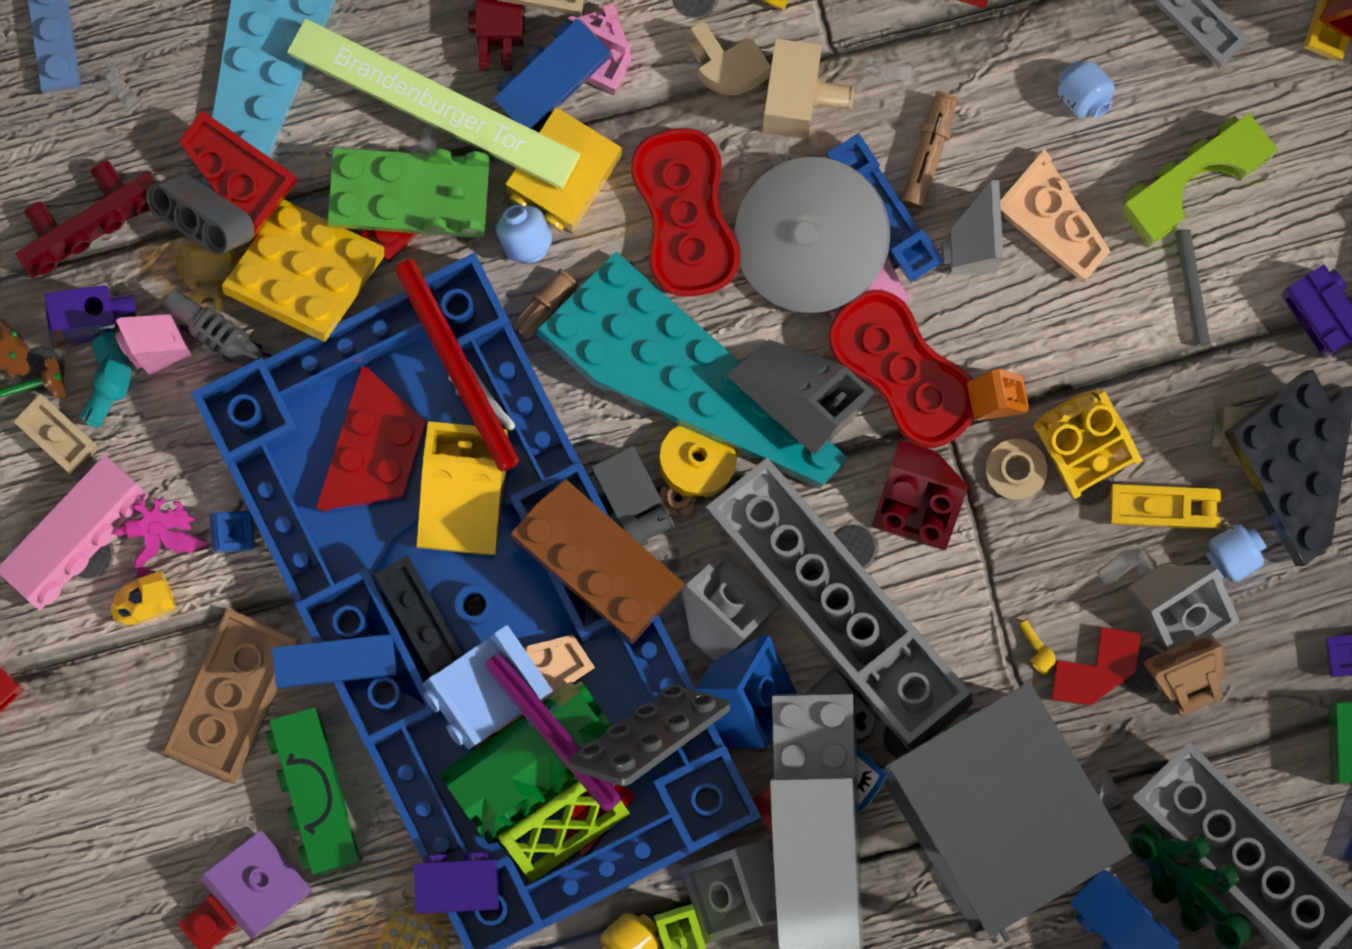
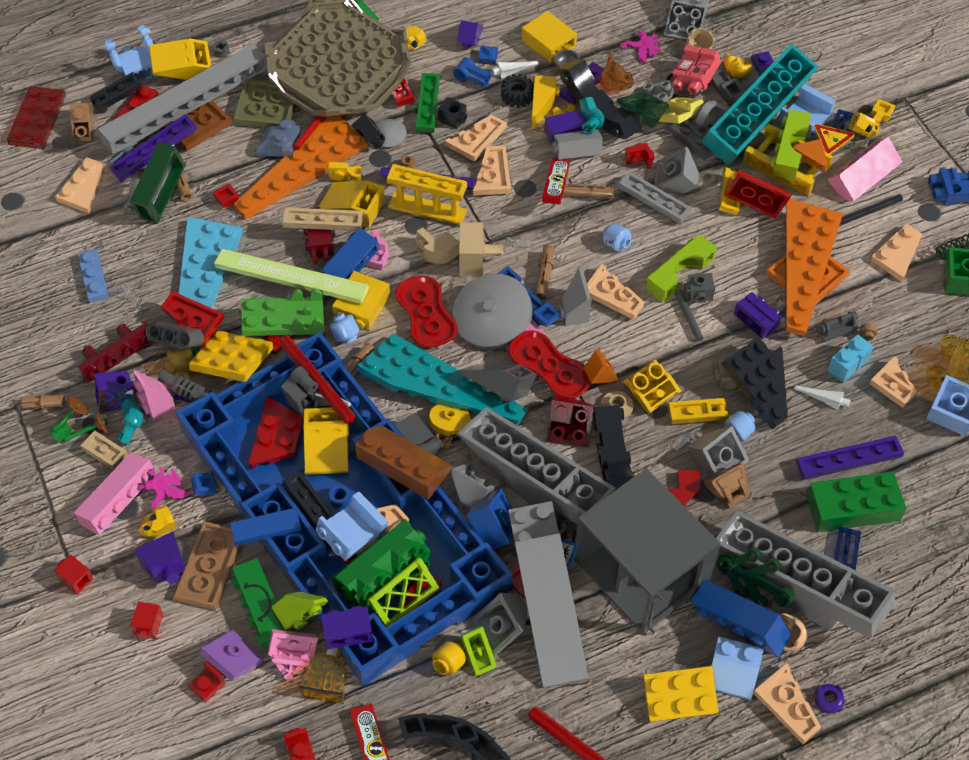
camera: 10 degrees left, 25 degrees down
(113, 794) = (146, 620): none -> red brick
(149, 680) = (161, 559): none -> dark purple torso
(359, 891) = (291, 651): none -> bright pink slope
(376, 823) = (297, 608): none -> lime slope
(424, 383) = (300, 391): none -> dark grey hinge
(548, 727) = (391, 538): magenta axle -> none
(648, 735) = (437, 537): dark grey bracket -> none
(989, 584) = (611, 450): none -> black brick
(1236, 230) = (699, 287): none -> dark grey brick

